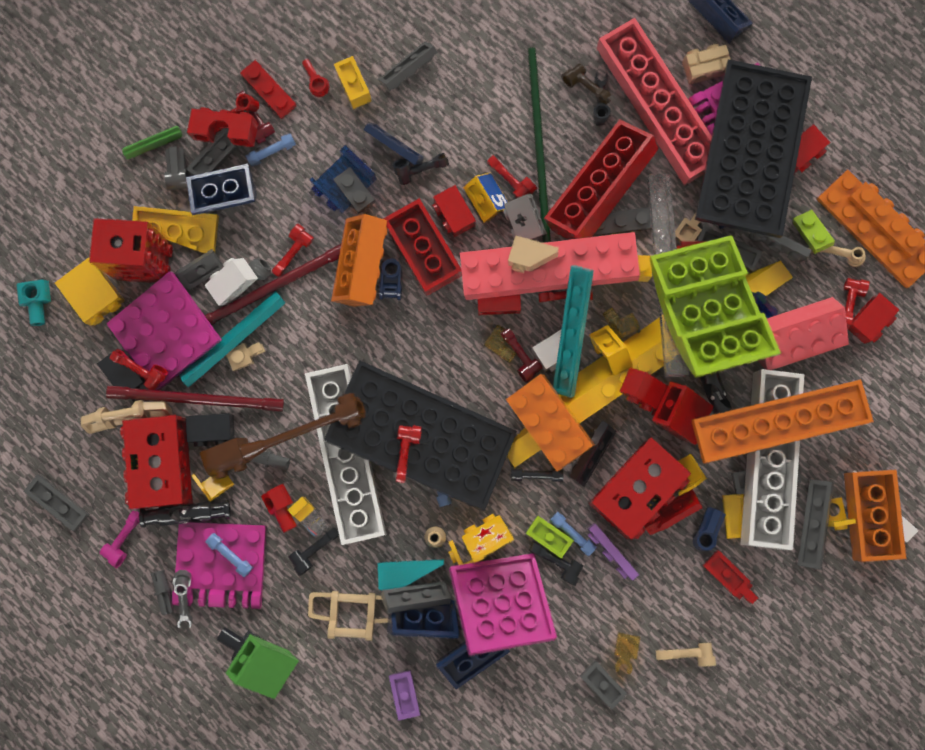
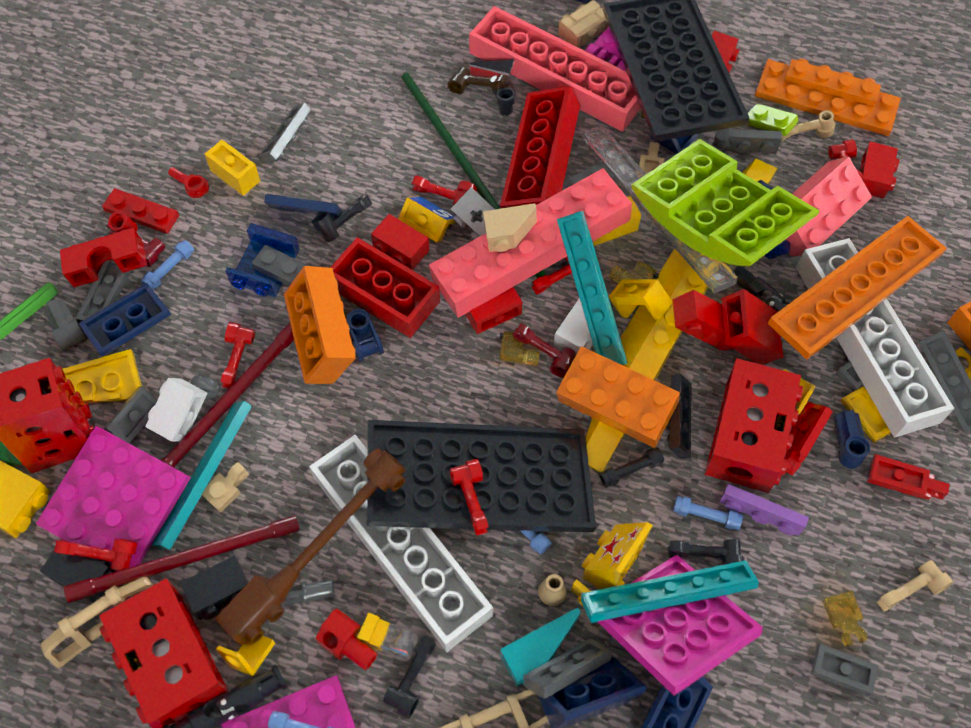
camera: 30 degrees left, 20 degrees down
(510, 580) = (668, 591): none -> teal tile
(549, 536) = (684, 527): lime plate -> none
(603, 77) = (491, 68): none -> sticker

